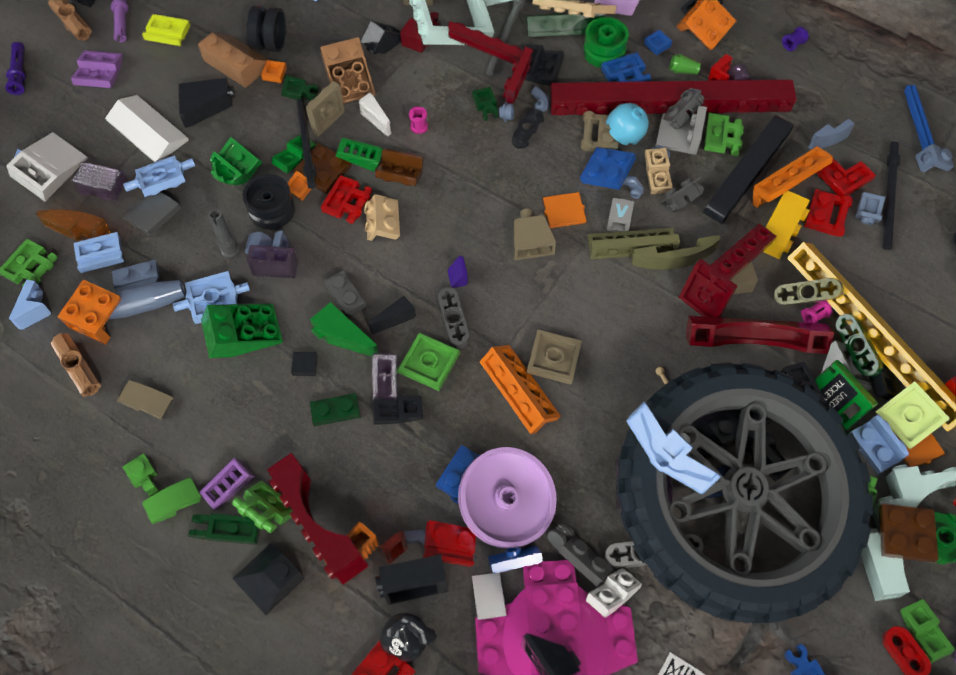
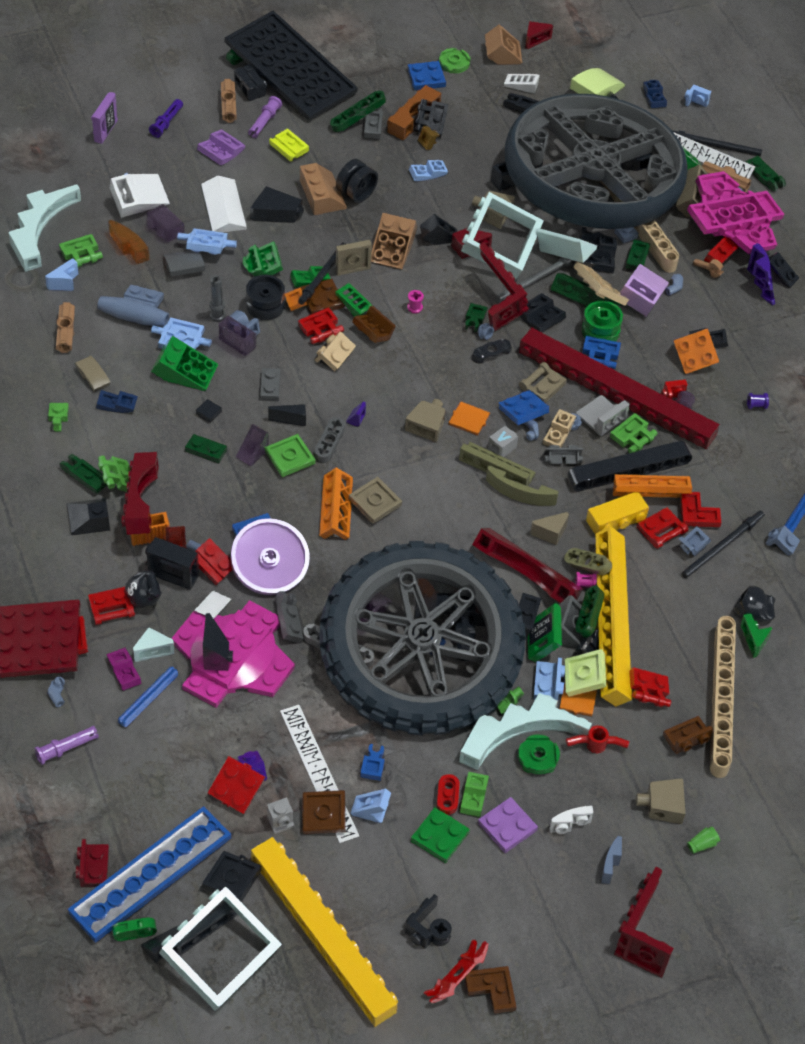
camera: 30 degrees right, 10 degrees down
(89, 311) = (96, 299): orange bracket -> none
(98, 252) = (131, 268): light blue plate -> none
(169, 500) = (59, 437): bright green slope -> none
(198, 417) = (116, 403): none -> dark blue slope
(232, 489) = (112, 443): medium lavender slope -> none
(273, 71) = (341, 213): orange plate -> none
(296, 88) = (347, 233): dark green plate -> none
(340, 331) = (246, 402): green slope -> none
(372, 111) = (387, 279): white slope -> none
(397, 410) = (246, 473): black slope -> none
(515, 558) = (246, 593): plate -> none
(542, 99) = (515, 342): sand blue arm -> none
(614, 593) = (295, 649): white slope -> none
(628, 123) = (564, 386): medium azure cylinder -> none
(658, 42) = (645, 345): blue plate -> none
(670, 451) = (380, 571): light blue plate -> none
(683, 65) = (650, 371): bright green cone -> none
(689, 101) = (607, 399): dark grey hinge -> none
(711, 286) = (517, 509): dark red bracket -> none
(829, 136) = (709, 478): sand blue slope -> none
(908, 533) = (509, 728): reddish brown plate -> none

